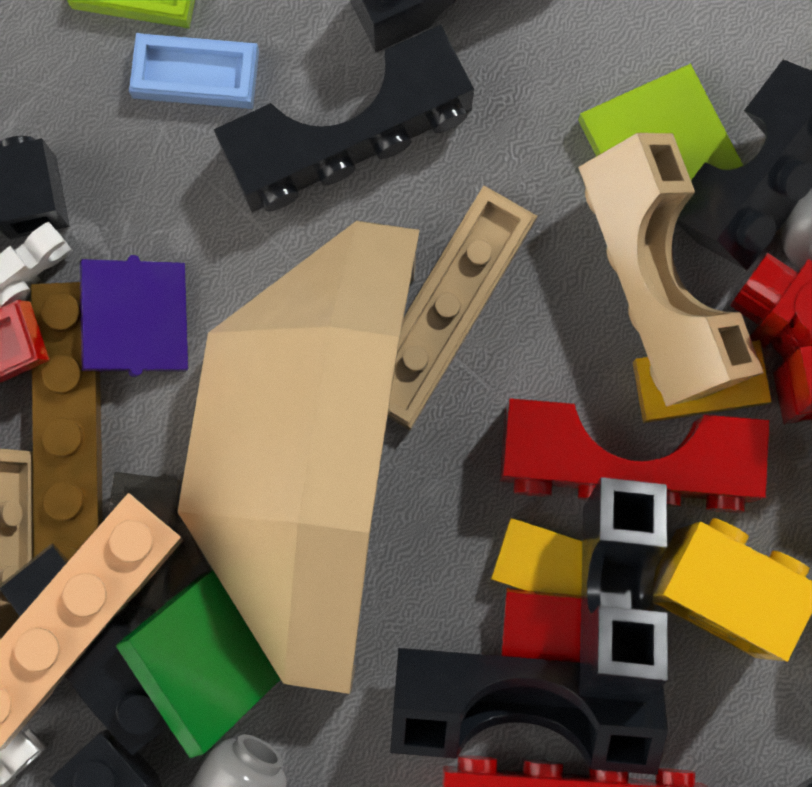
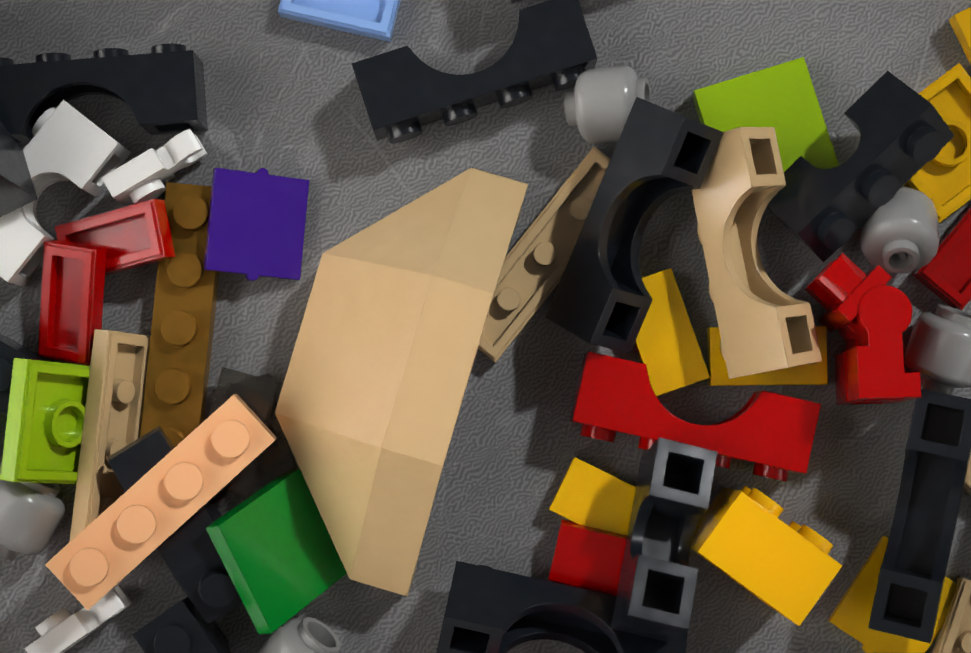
camera: 10 degrees right, 5 degrees up
(493, 138) = (604, 102): none -> light grey head
(550, 184) = (602, 284): none -> black arch
(585, 370) = (667, 338): none -> yellow tile

